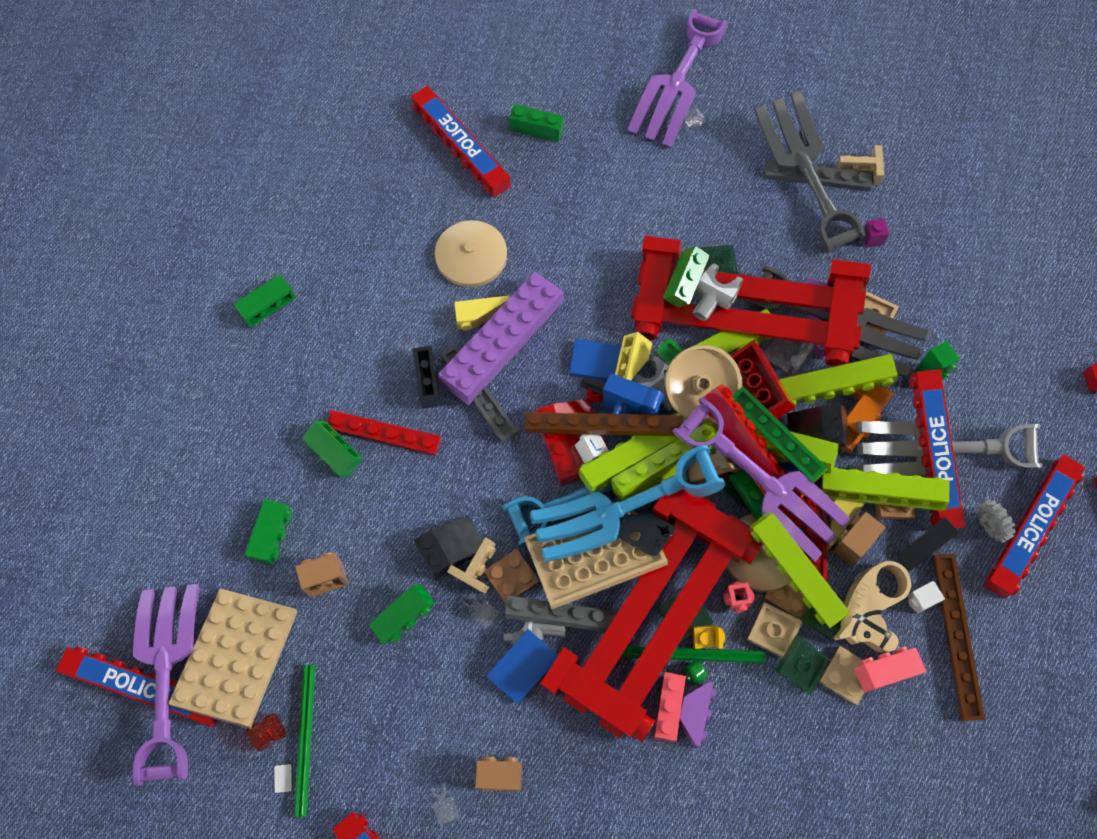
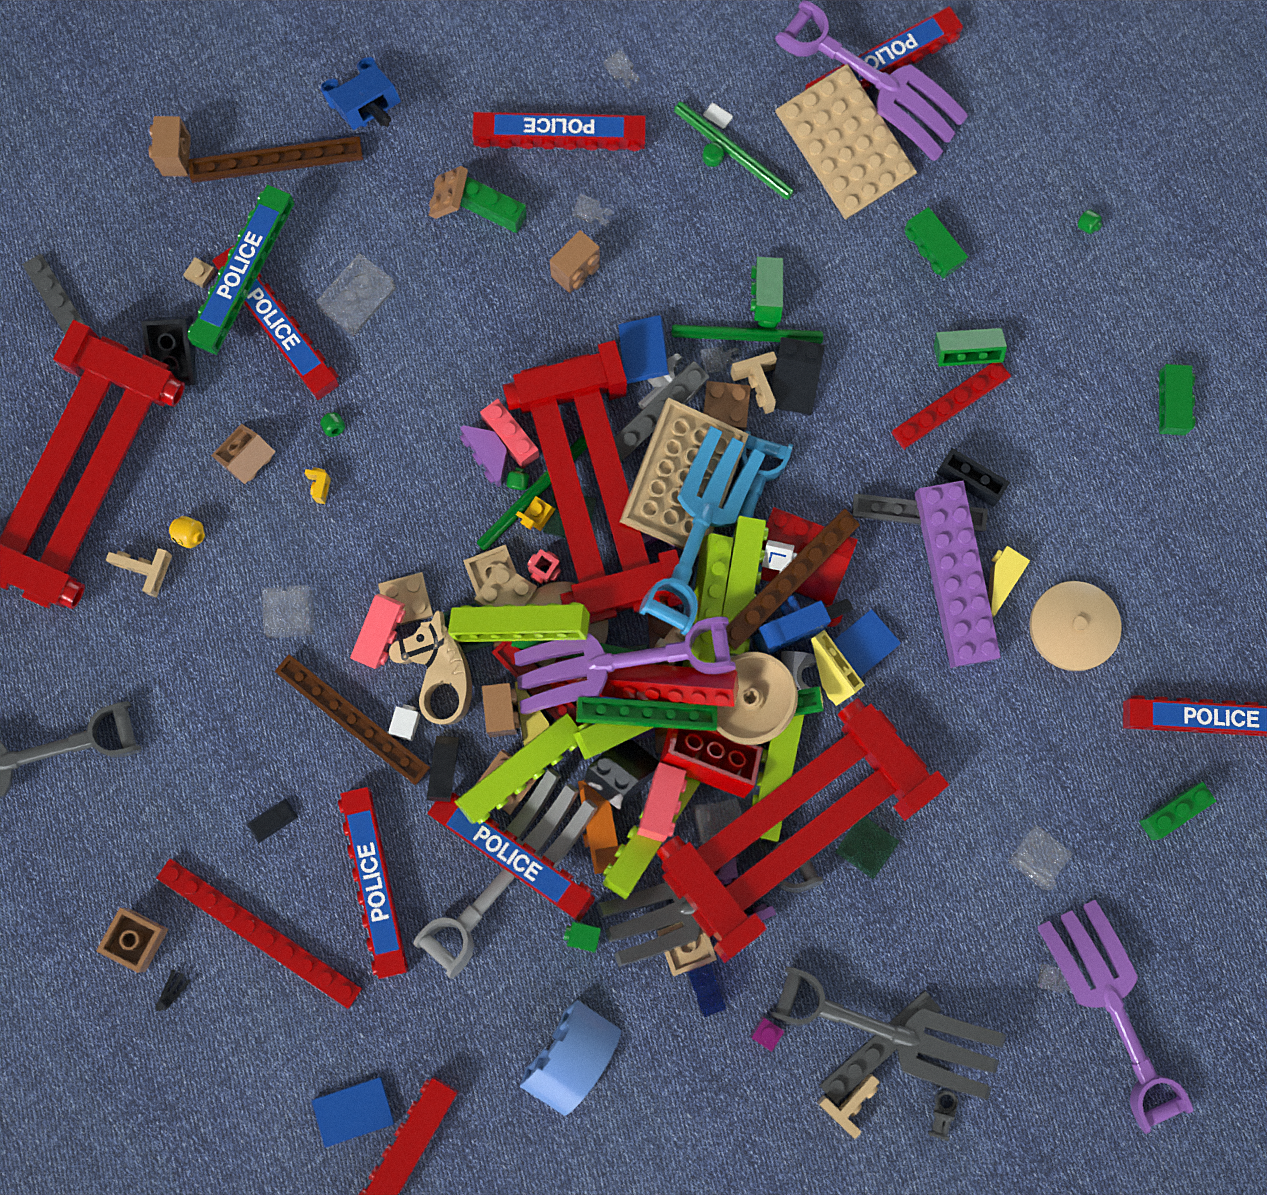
camera: 125 degrees right, 10 degrees up
(169, 444) = (1090, 221): none -> green piece
(264, 732) = (763, 124): clear red wheel -> none
(321, 574) = (858, 253): medium nougat brick -> none
(321, 752) = (712, 154): none -> green piece
(447, 607) = (744, 334): none -> green axle
(632, 171) = (1040, 858): none -> clear bracket
(646, 525) = (667, 534): black axle -> none
(686, 276) = (871, 782): brick -> none
(714, 293) = (832, 795): light grey connector -> none
(781, 606) = (505, 588): none -> tan plate
(802, 665) = (445, 567): clear green plate -> none
(817, 383) = (662, 803): none -> coral brick
(820, 117) = (943, 1116): none -> dark grey connector
(836, 814) = (319, 488): none -> yellow bracket
(888, 280) = (706, 990): none -> clear blue brick
(940, 746) = (287, 611): none -> clear piece
(995, 520) = (407, 844): light grey gear -> none
(1000, 319) = (574, 1060): none -> medium blue panel
(1068, 629) = (272, 820): none -> black tile

